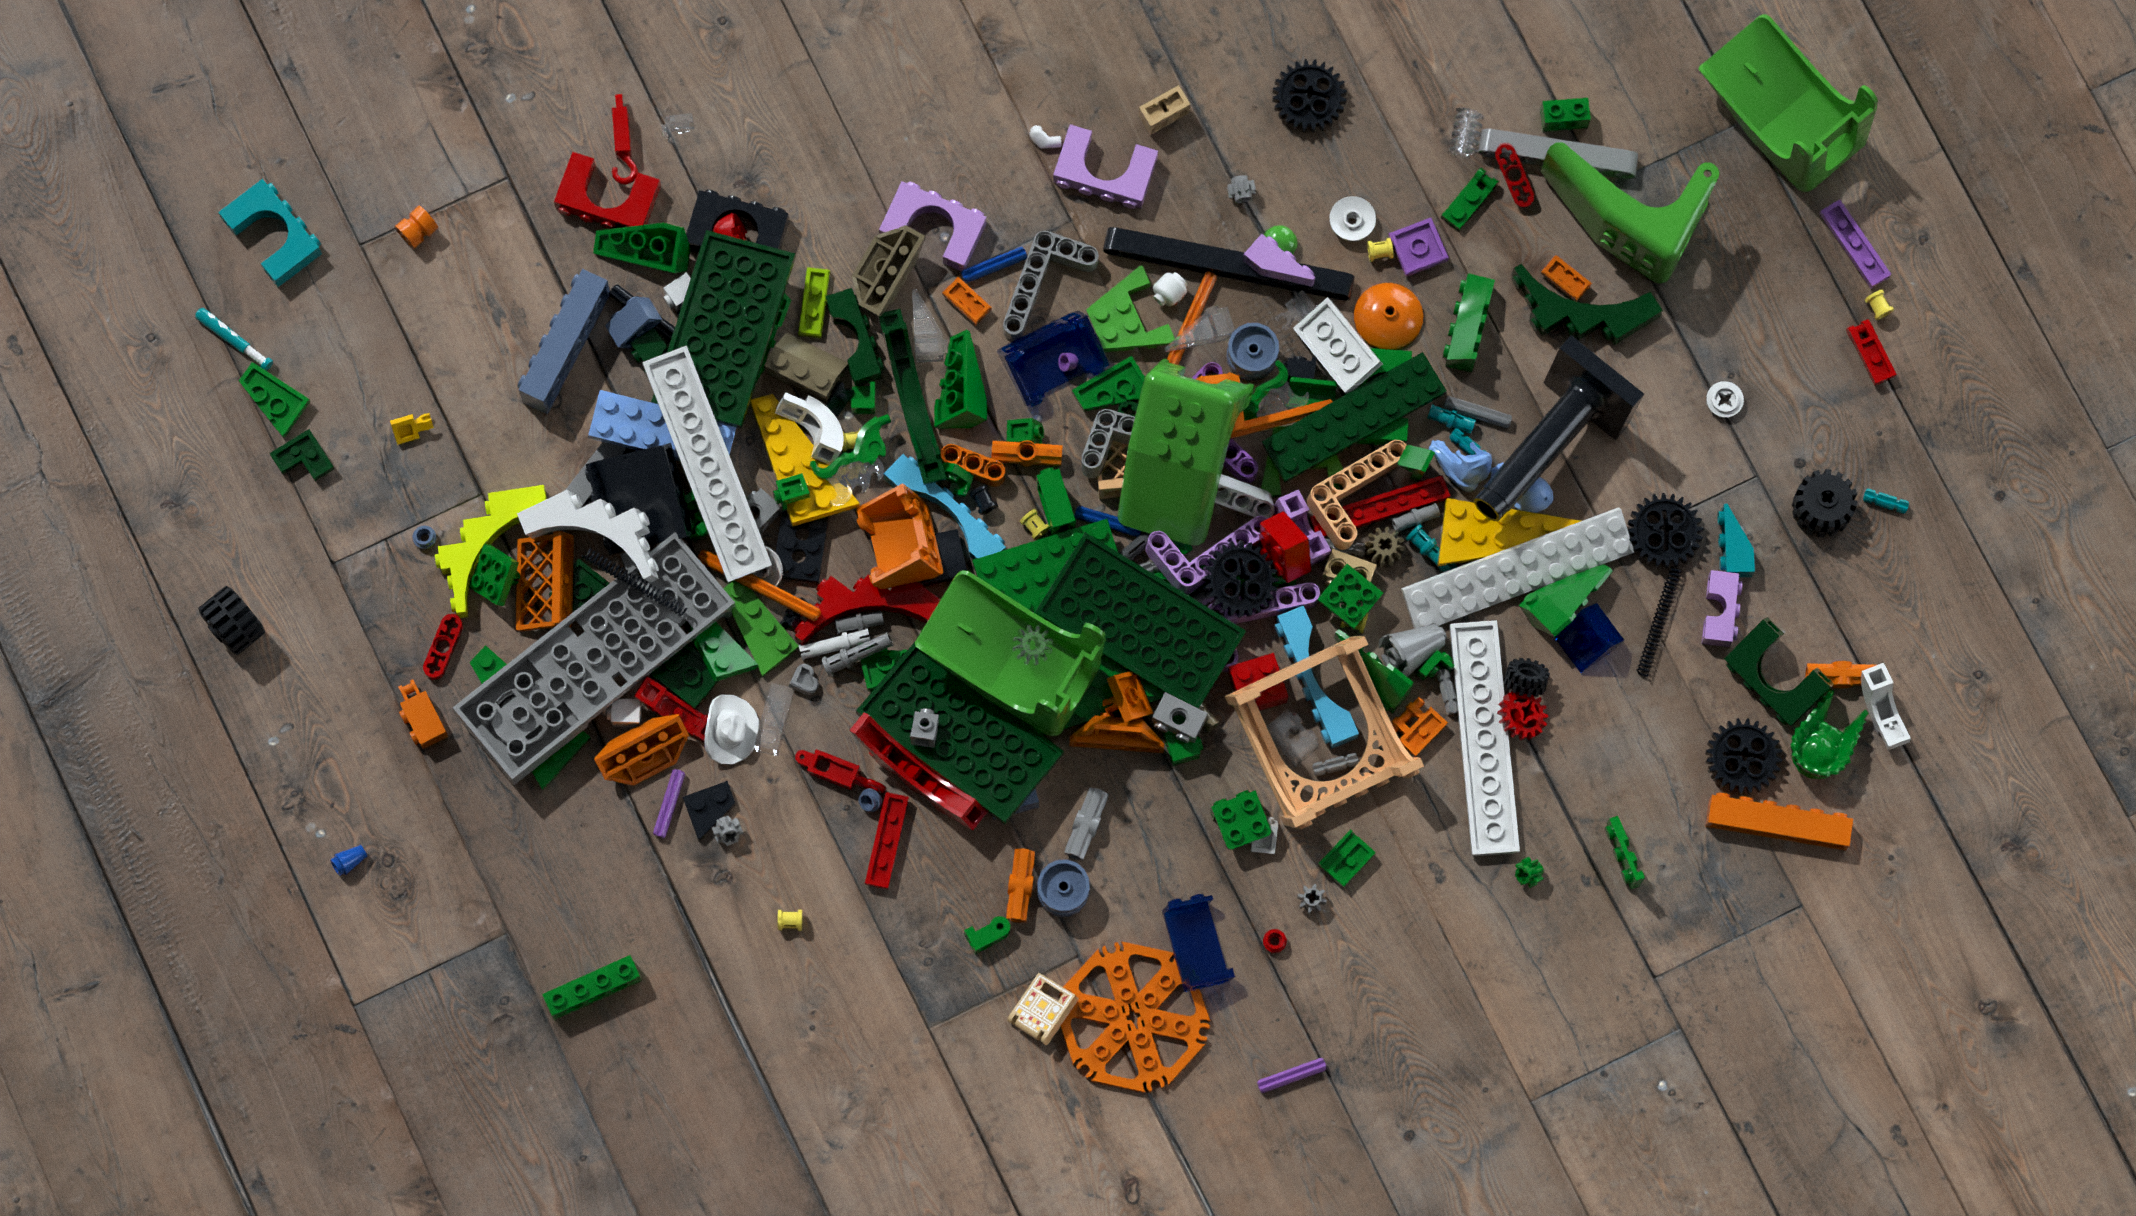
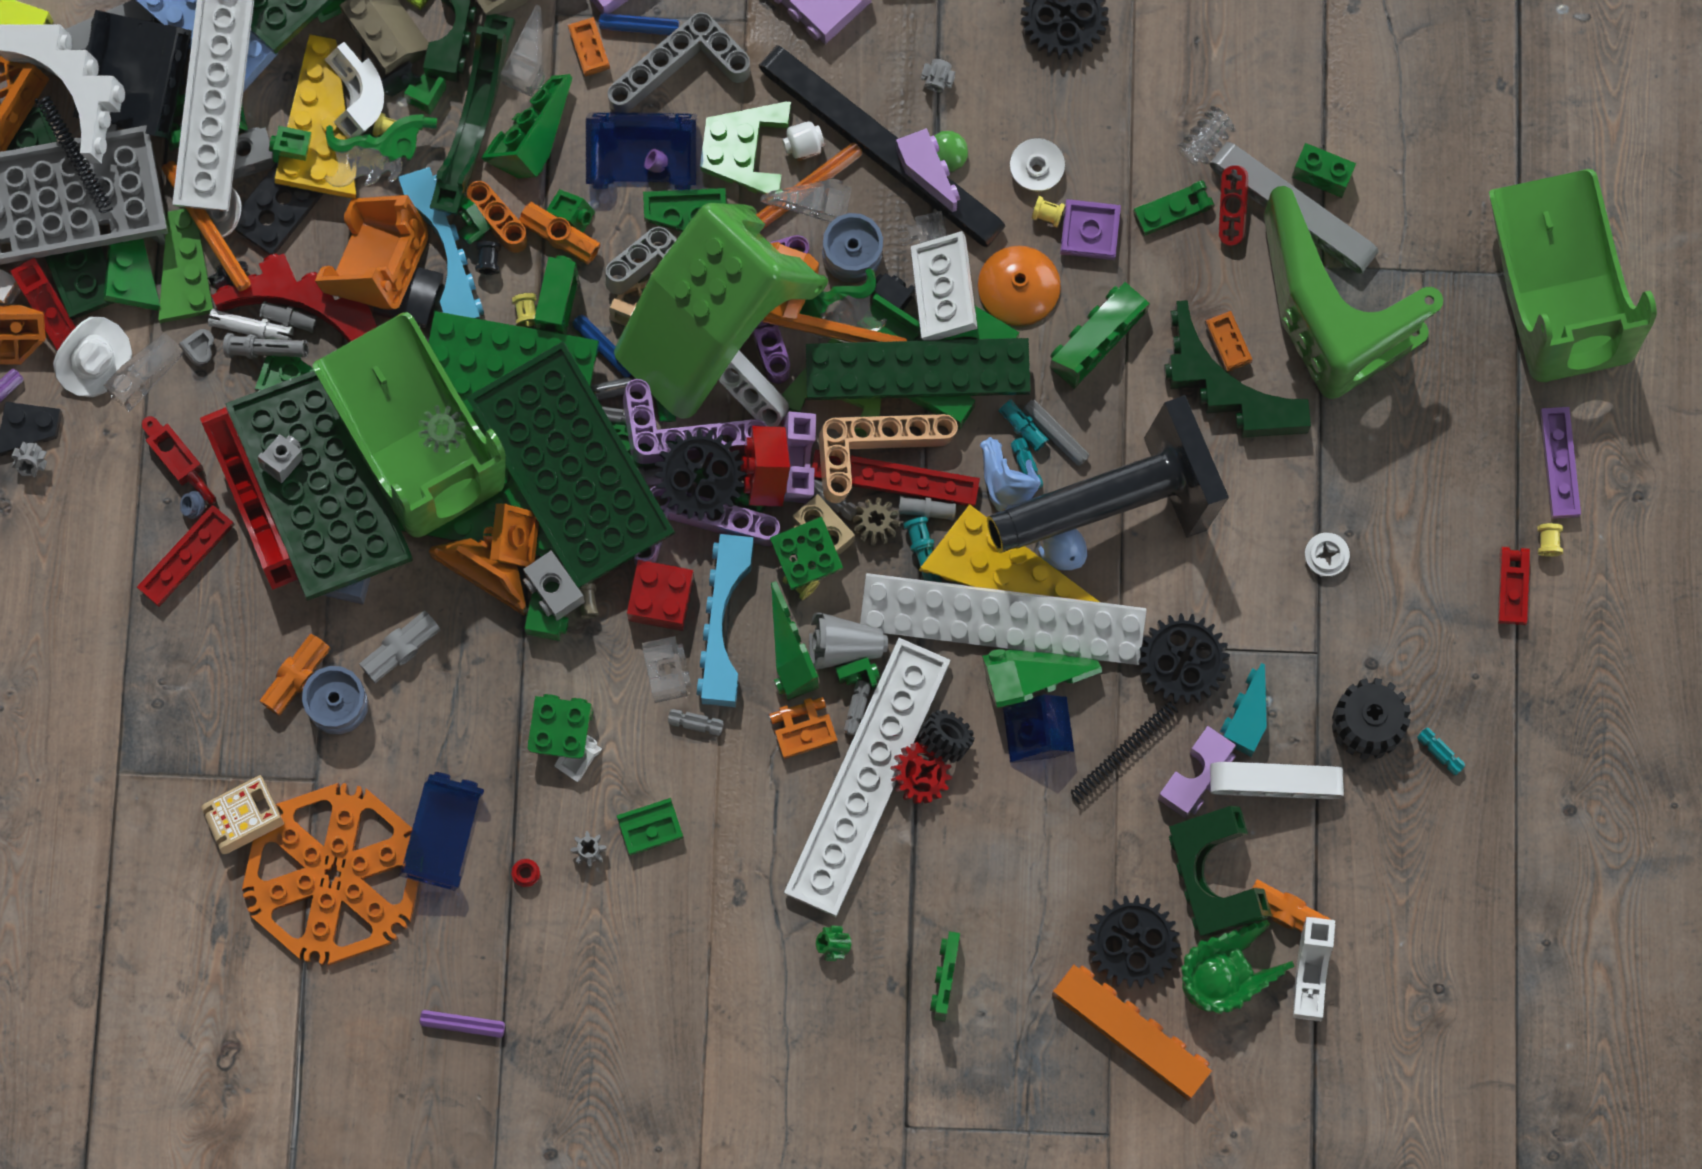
camera: 30 degrees right, 0 degrees up
(790, 920) = (39, 585): light yellow bush -> none
(989, 935) = (232, 709): green leg -> none
(1395, 756) = (623, 744): light nougat arch -> none
(1416, 461) = (957, 448): green slope -> none
(1782, 584) = (1276, 780): none -> white beam

